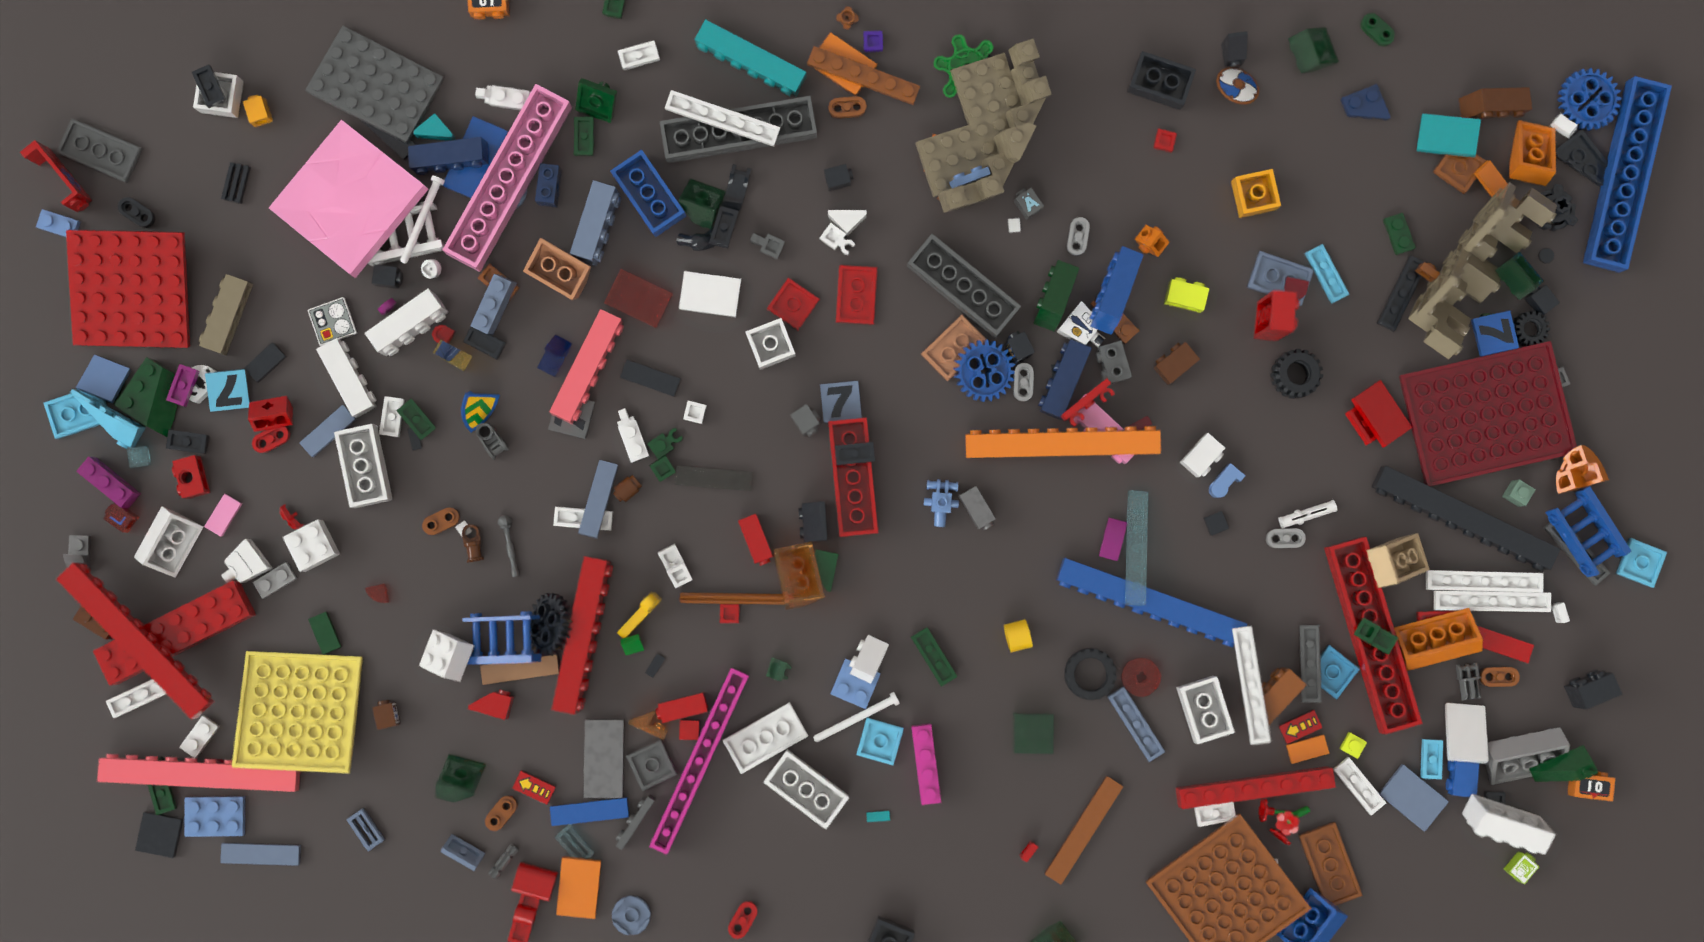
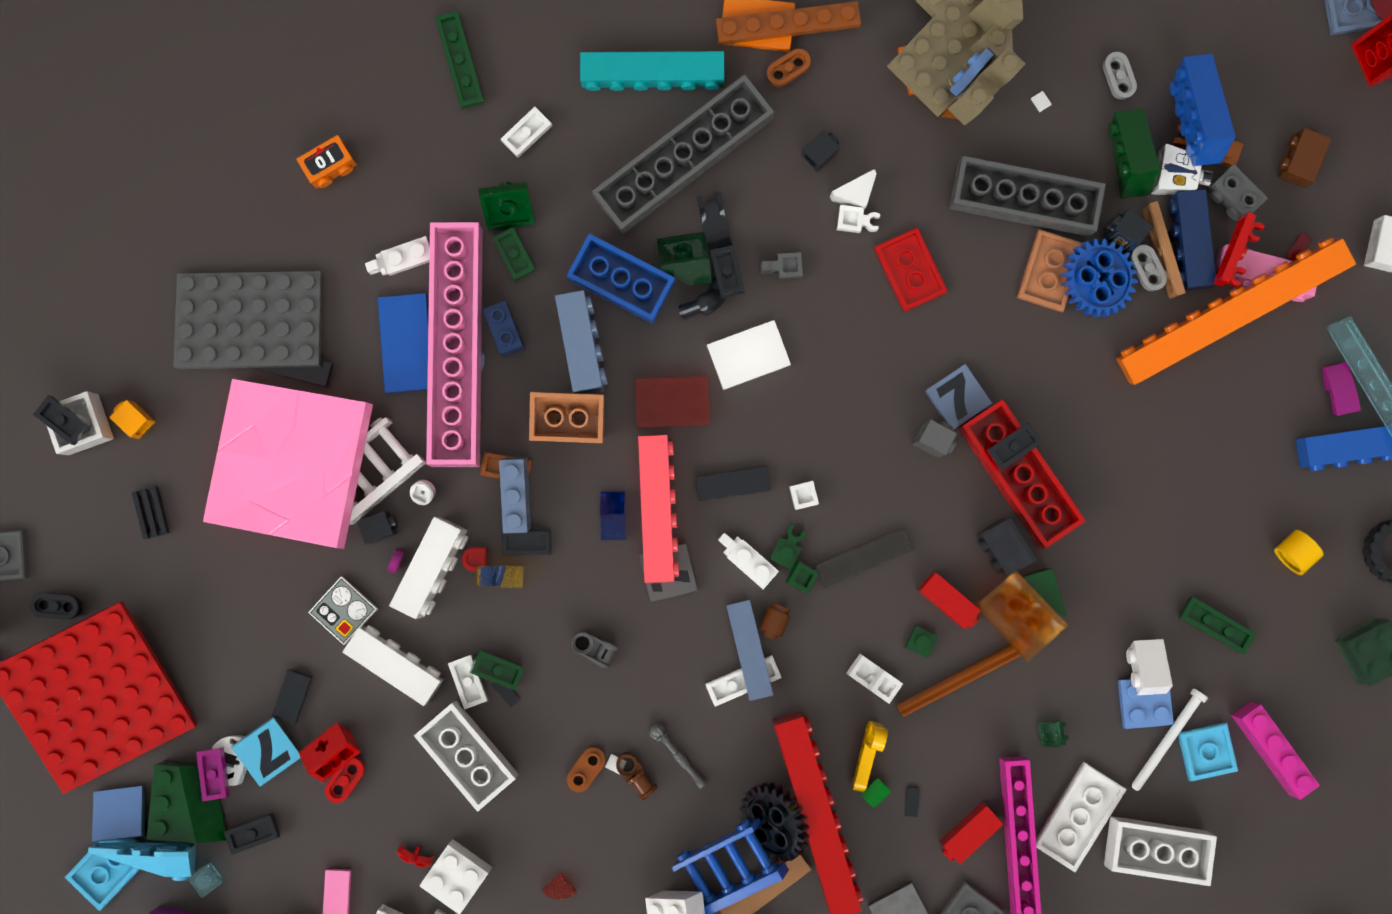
camera: 25 degrees left, 0 degrees up
(199, 483) = (291, 873): red brick -> none
(225, 314) = (218, 667): dark tan brick -> none
(324, 433) = (402, 737): sand blue tile -> none
(421, 218) = (377, 392): white bar -> none
(433, 129) = (342, 334): teal slope -> none
(448, 155) = (374, 355): dark blue brick -> none
(477, 408) = (560, 621): shield -> none
(644, 723) = (937, 874): clear orange slope -> none
(689, 730) = (990, 854): red tile -> none
(721, 558) = (921, 641): none -> dark green plate
(722, 118) = (662, 150): white plate -> none
(729, 613) = (964, 699): red tile -> none
(770, 343) = (848, 374): white brick -> none
(793, 304) = (846, 317): red tile -> none
(878, 816) = (1250, 836): teal piece -> none
(941, 502) = (1132, 449): medium blue piece -> none
(977, 508) = (1176, 434): flat silver brick -> none
(1028, 203) = (1045, 67): dark grey brick -> none
(1040, 376) = (1164, 249): none -> medium nougat tile
(1151, 240) = (1205, 36): orange brick -> none
(1186, 295) = (1274, 77): neon yellow brick -> none

